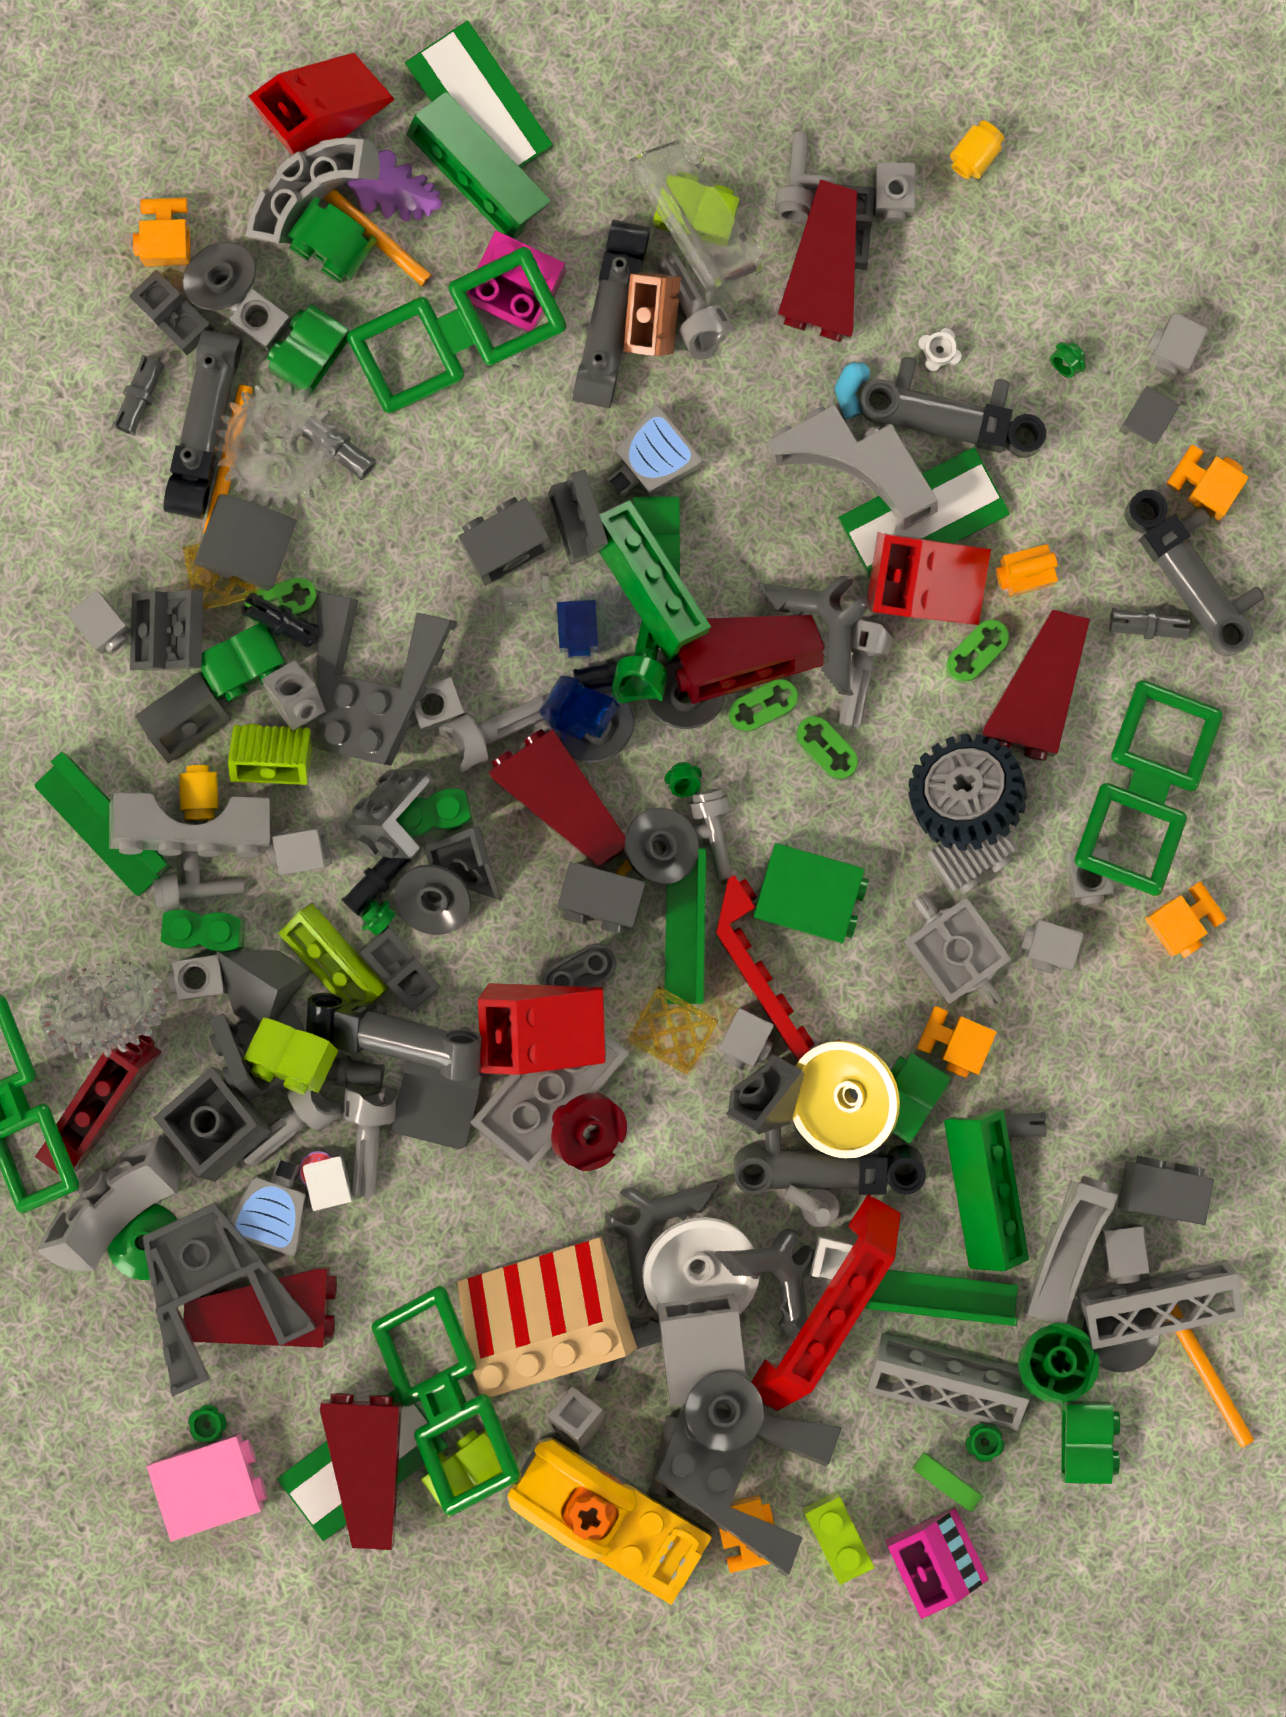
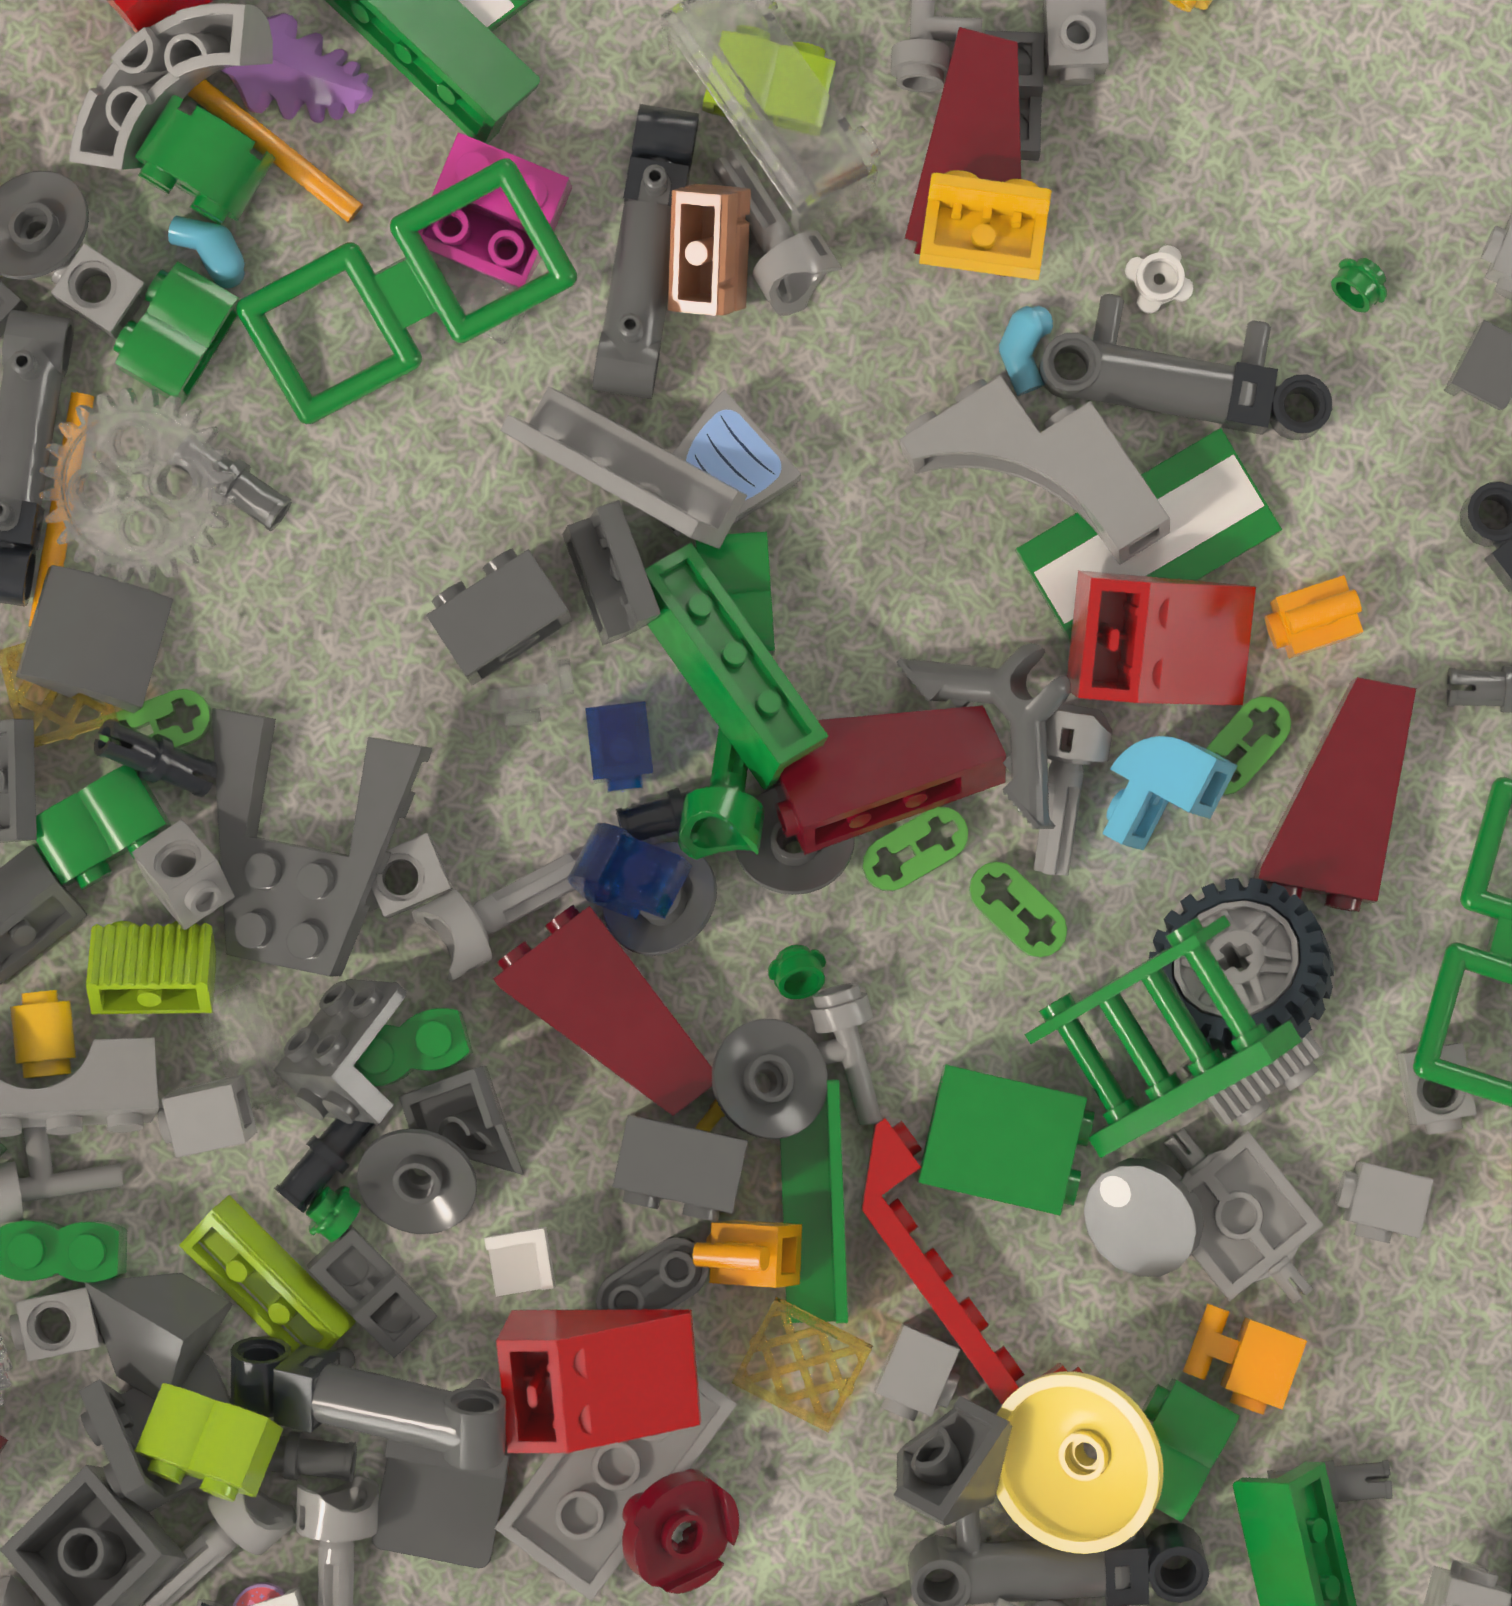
camera: 10 degrees left, 0 degrees up
(335, 296) = (215, 247): none -> medium azure arm
(496, 954) = (521, 1261): none -> white panel
(594, 449) = (629, 467): none -> light grey fence
(644, 957) = (751, 1253): none -> light orange brick
(829, 306) = (985, 225): none -> yellow bracket
(896, 948) = (1143, 1217): none -> tile
(924, 664) = (1160, 773): none -> medium azure brick
(943, 851) = (1209, 1067): none -> green fence

